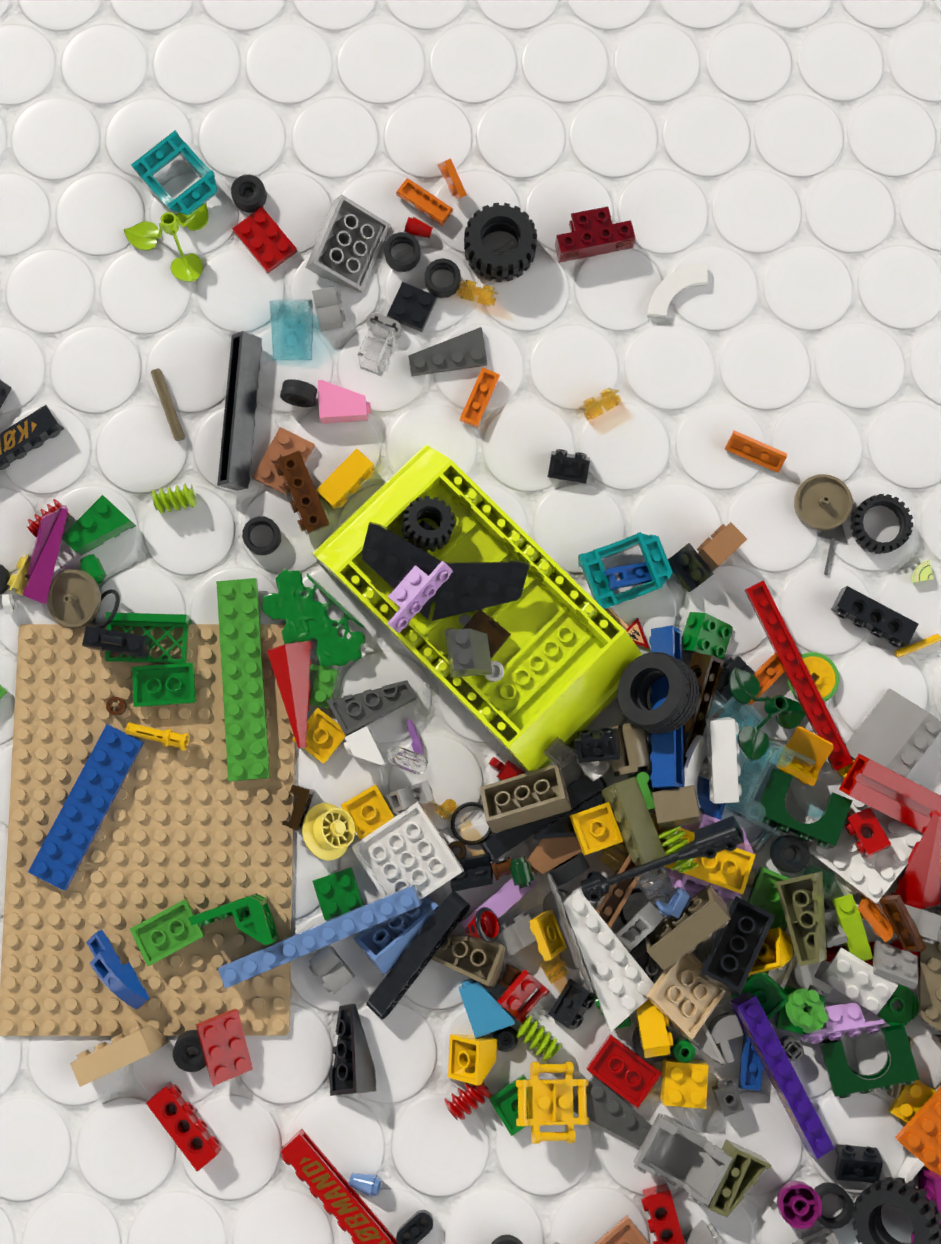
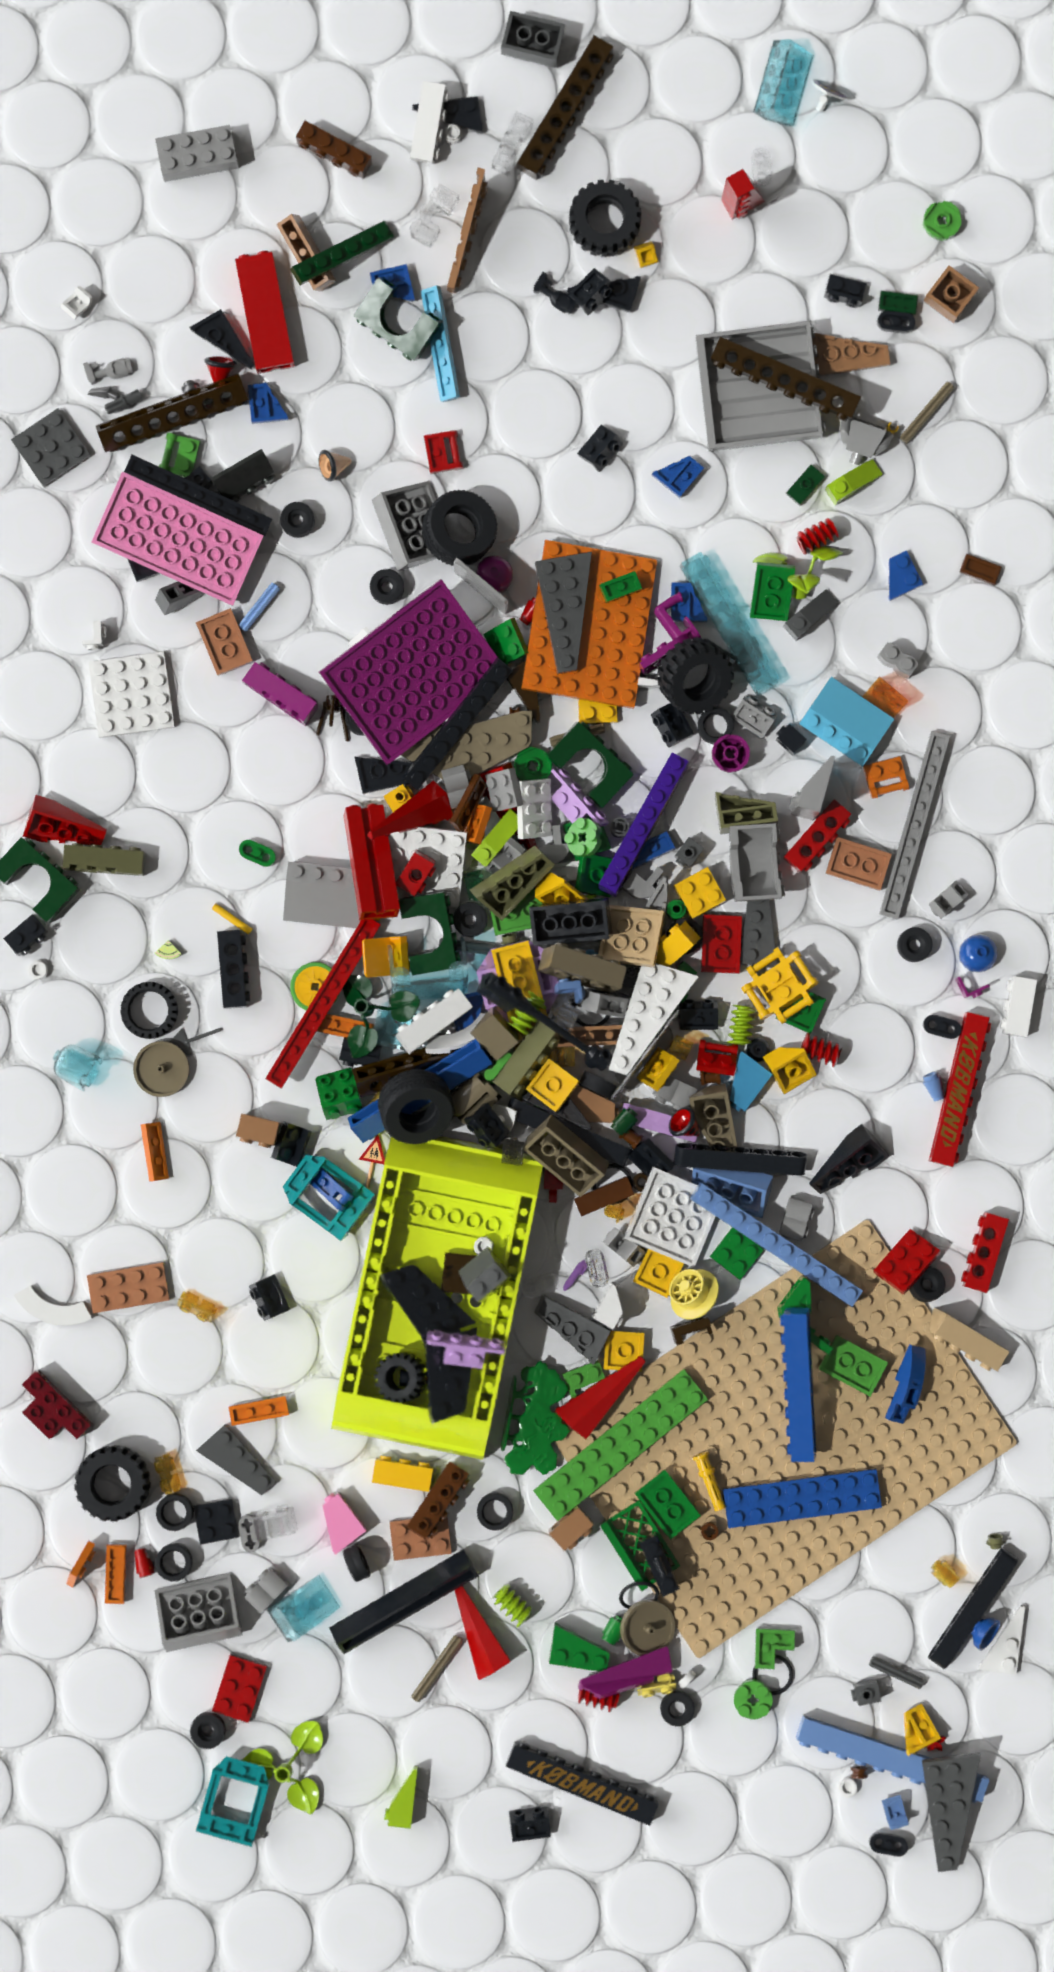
camera: 130 degrees left, 5 degrees up
(74, 300) = (402, 1804): none -> lime slope
(154, 453) = (484, 1647): none -> red wedge
(182, 873) = (799, 1384): none -> blue brick
(201, 588) = (571, 1528): none -> medium nougat brick
(466, 808) = (604, 1196): none -> reddish brown tile
(653, 359) = (128, 1287): none -> nougat plate
(871, 432) = (76, 1066): none -> clear light blue cylinder

